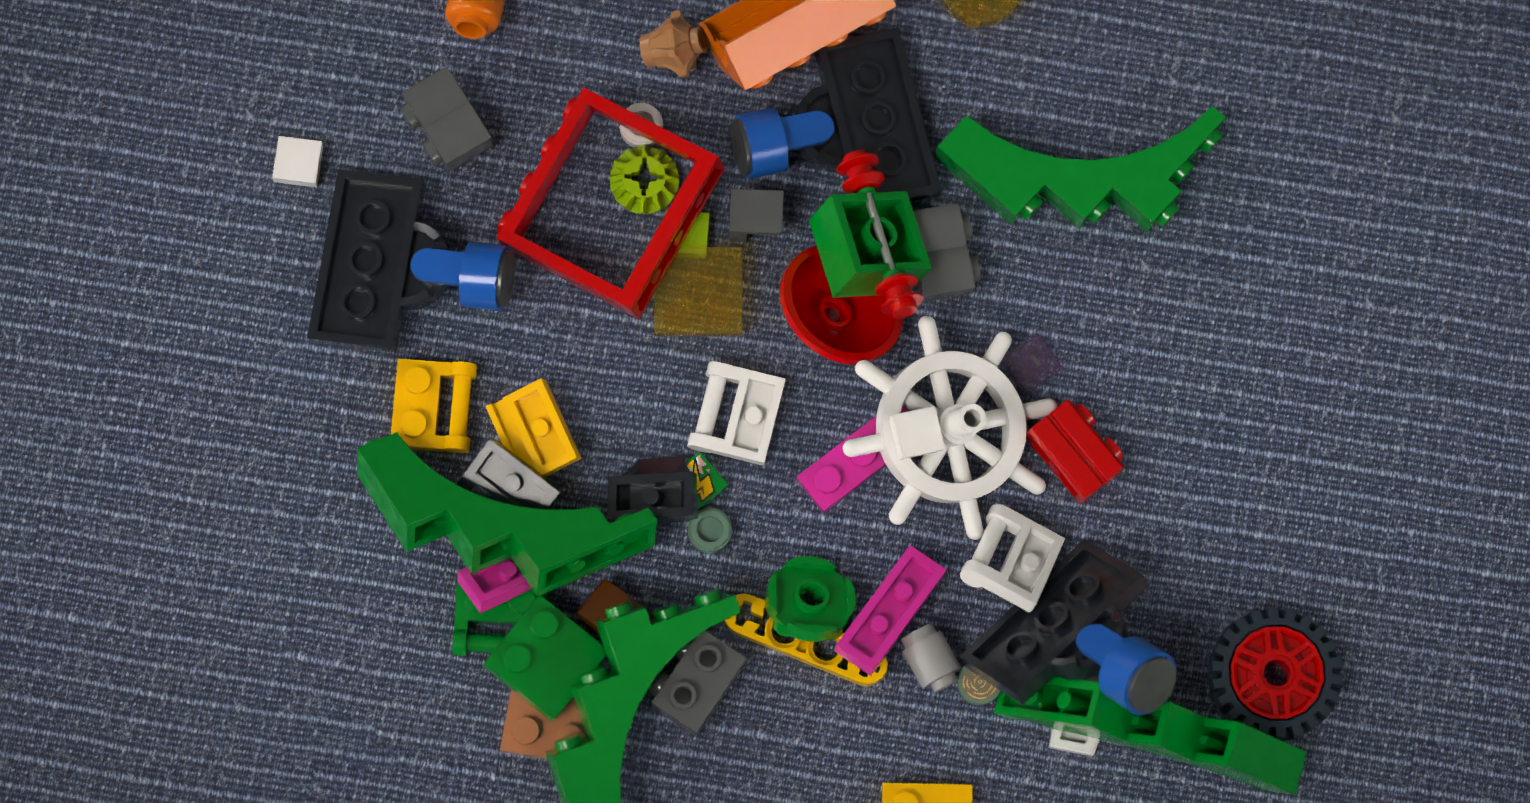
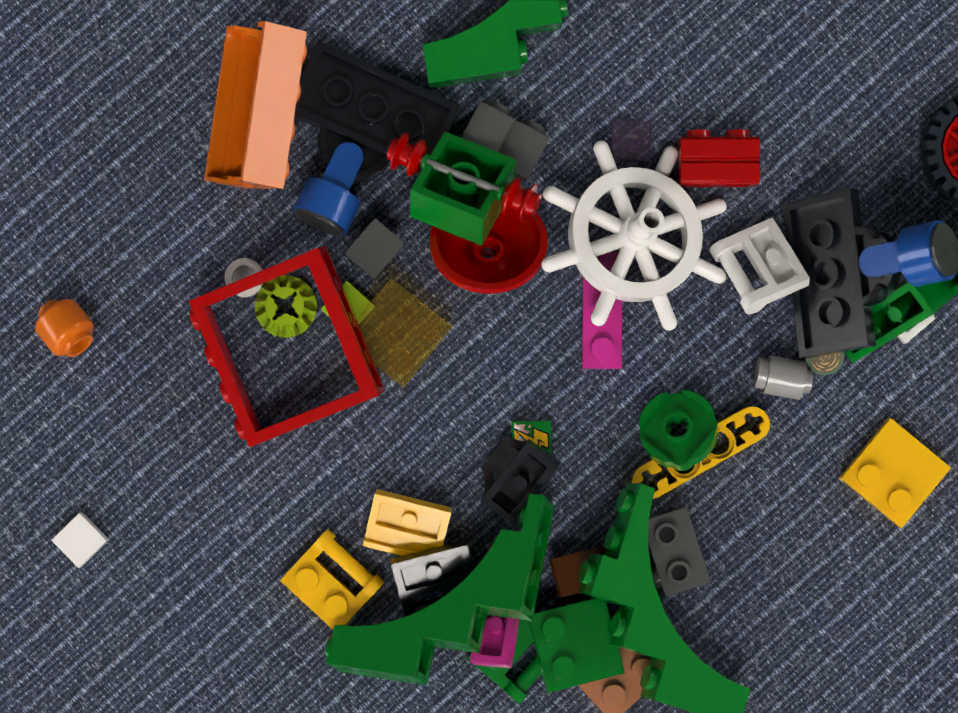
camera: 45 degrees left, 10 degrees up
(388, 262) = (206, 535): black plate -> none
(446, 120) = (132, 413): dark grey brick -> none
(673, 45) = (206, 210): medium nougat rock -> none
(710, 531) = (574, 457): sand green tile -> none
(750, 418) = (516, 367): white plate -> none
(890, 610) = (729, 379): dark pink plate -> none
(916, 433) = (625, 264): white tile -> none

